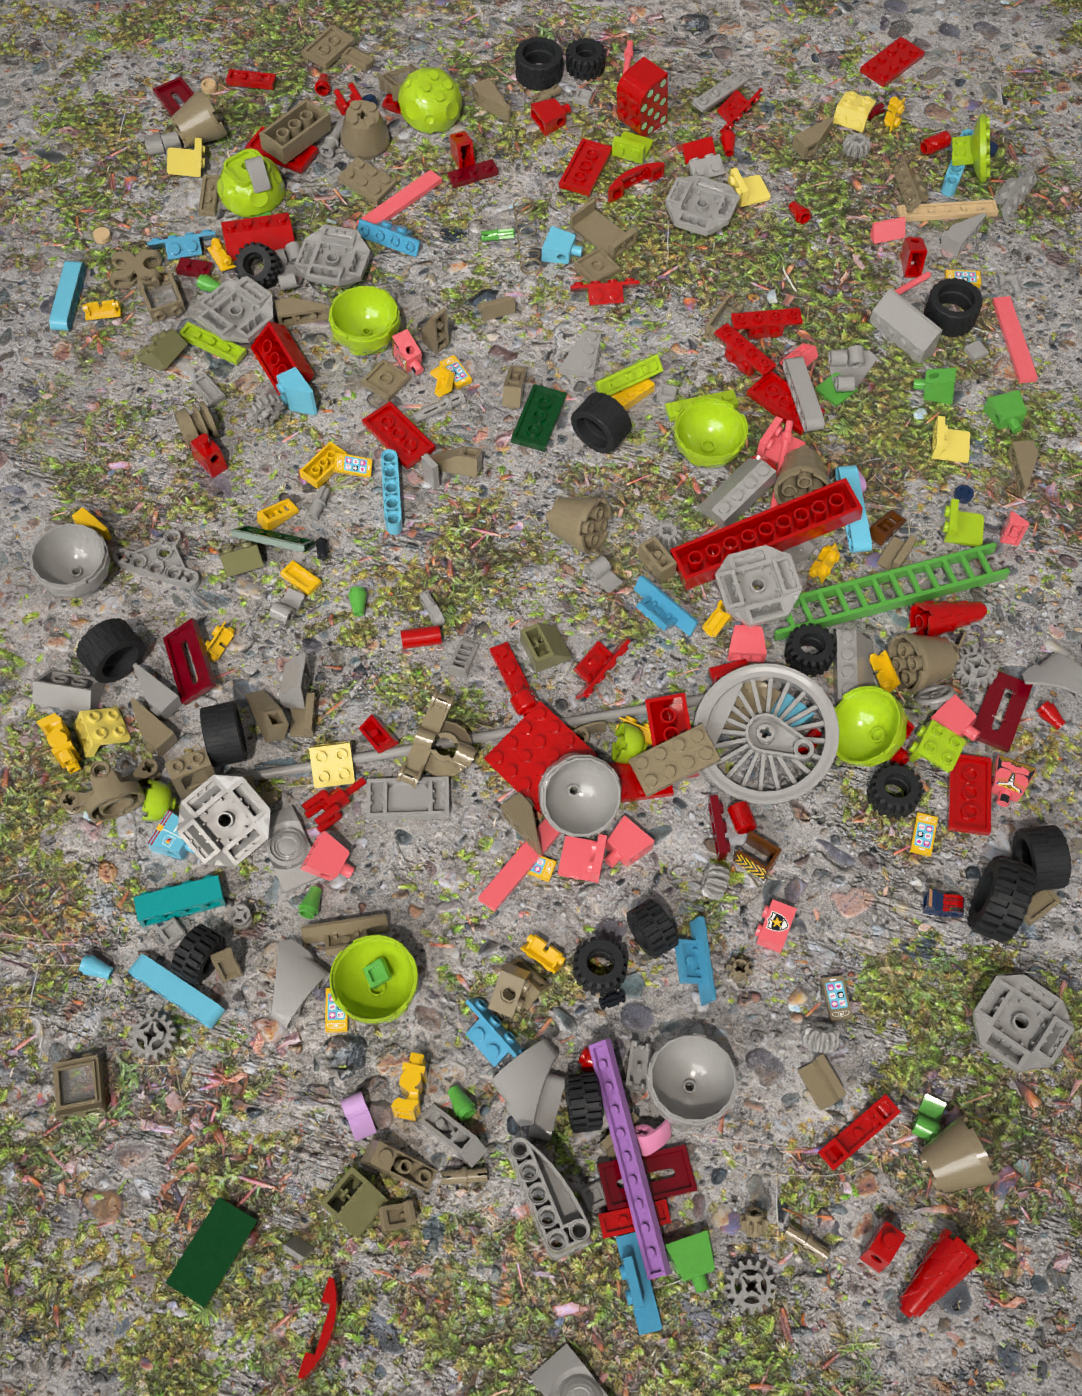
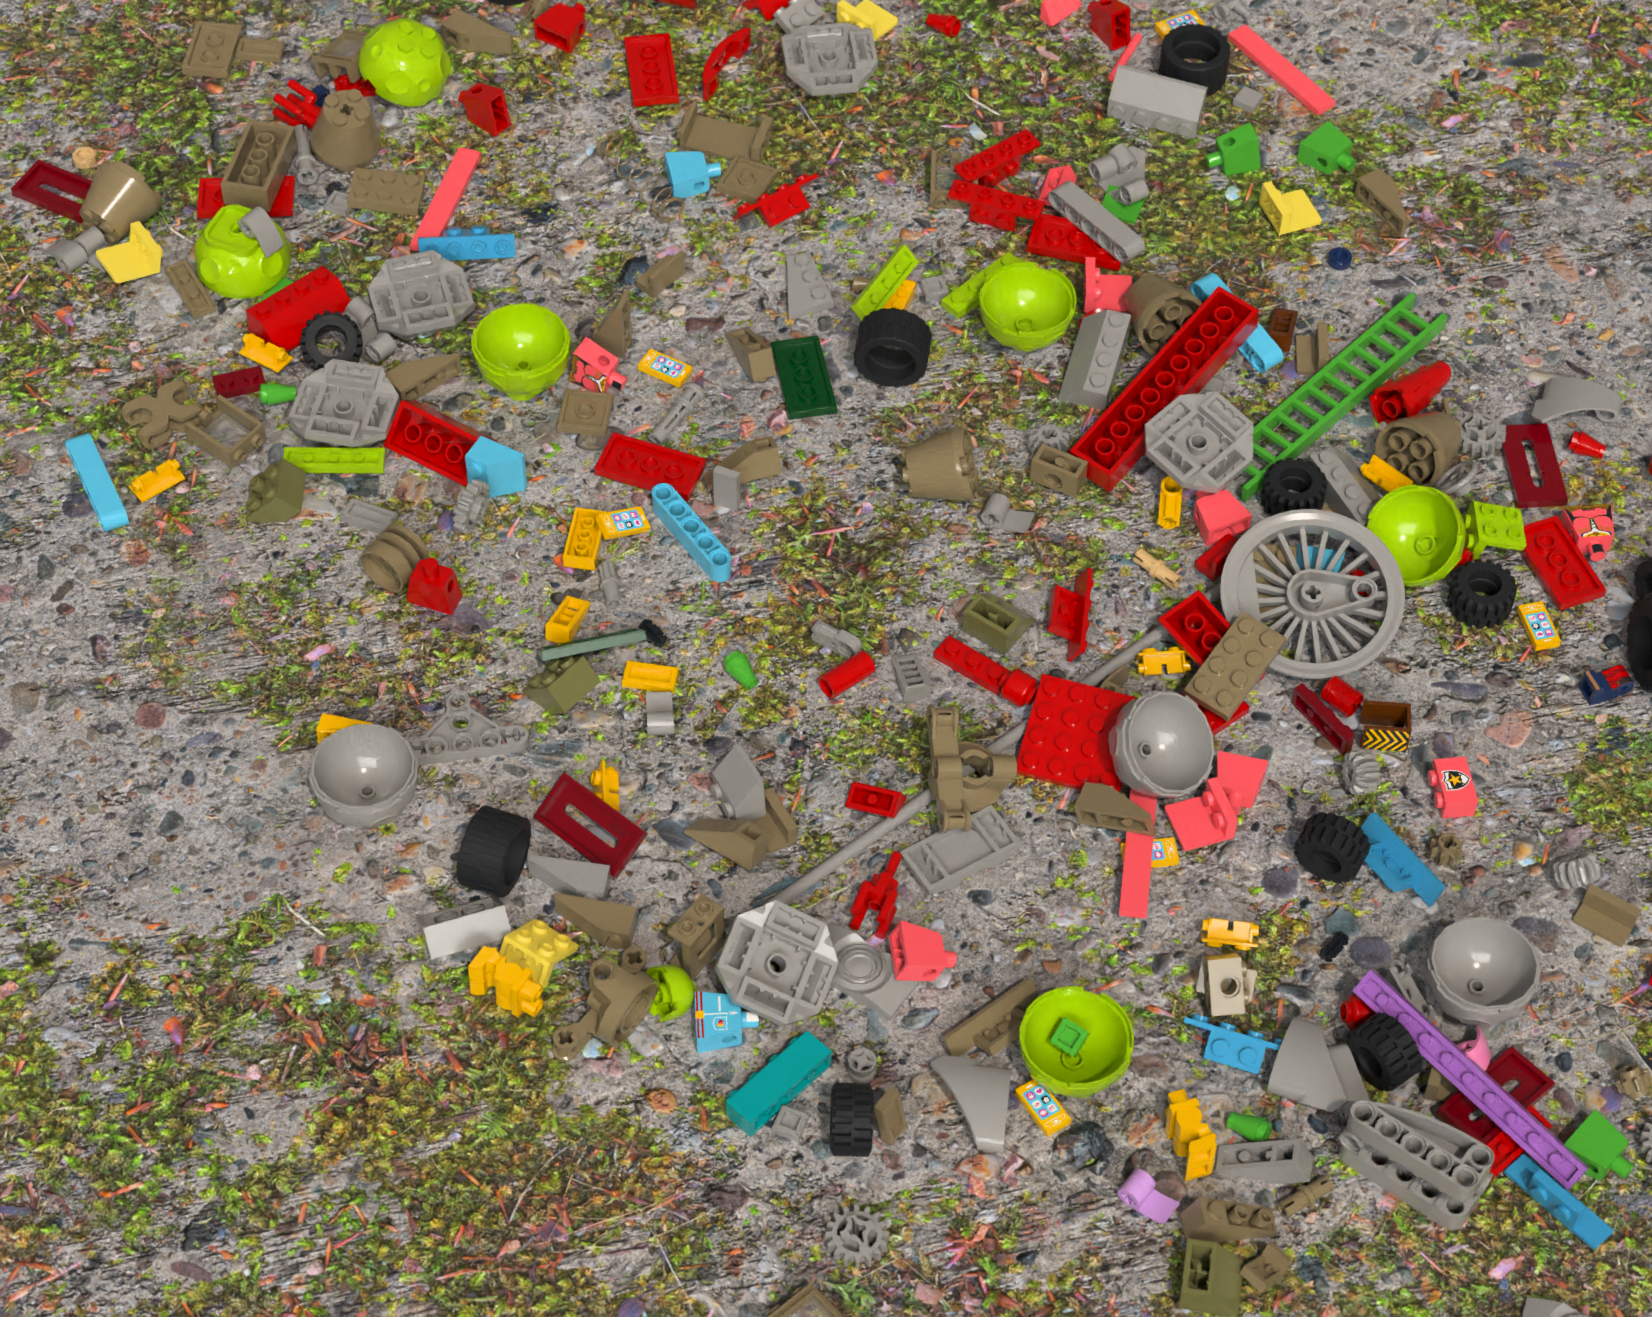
camera: 30 degrees left, 10 degrees down
(95, 967) = (732, 1201): medium azure cone -> none
(101, 235) = (82, 393): tan tile -> none
(176, 991) = (846, 1177): medium azure beam -> none
(183, 246) = (207, 362): dark azure bracket -> none
(223, 734) = (703, 867): black tyre -> none
(251, 79) = (138, 127): red plate -> none
(310, 904) = (931, 1012): bright green cone -> none
(322, 85) = (240, 98): red cone -> none
(332, 764) = (846, 856): light yellow bracket -> none
(444, 380) = (661, 382): yellow bracket -> none
(472, 173) = (513, 132): dark red plate -> none
(500, 234) = (600, 190): bright green axle -> none
(600, 983) = (1294, 933): black tyre -> none
(628, 743) = (1165, 673): lime cylinder -> none
(631, 147) = (691, 25): lime bracket -> none
(662, 608) = (1100, 520): dark azure bracket -> none
(679, 661) = (1157, 569): none -> tan pin
(786, 439) = (1110, 279): coral bar -> none
(829, 556) = (1242, 387): yellow hinge -> none
(836, 998) = (1563, 829): tile -> none
(958, 718) = (1496, 489): coral torso -> none
(961, 526) = (1363, 292): lime bracket -> none
(1013, 529) = (1421, 270): coral slope -> none

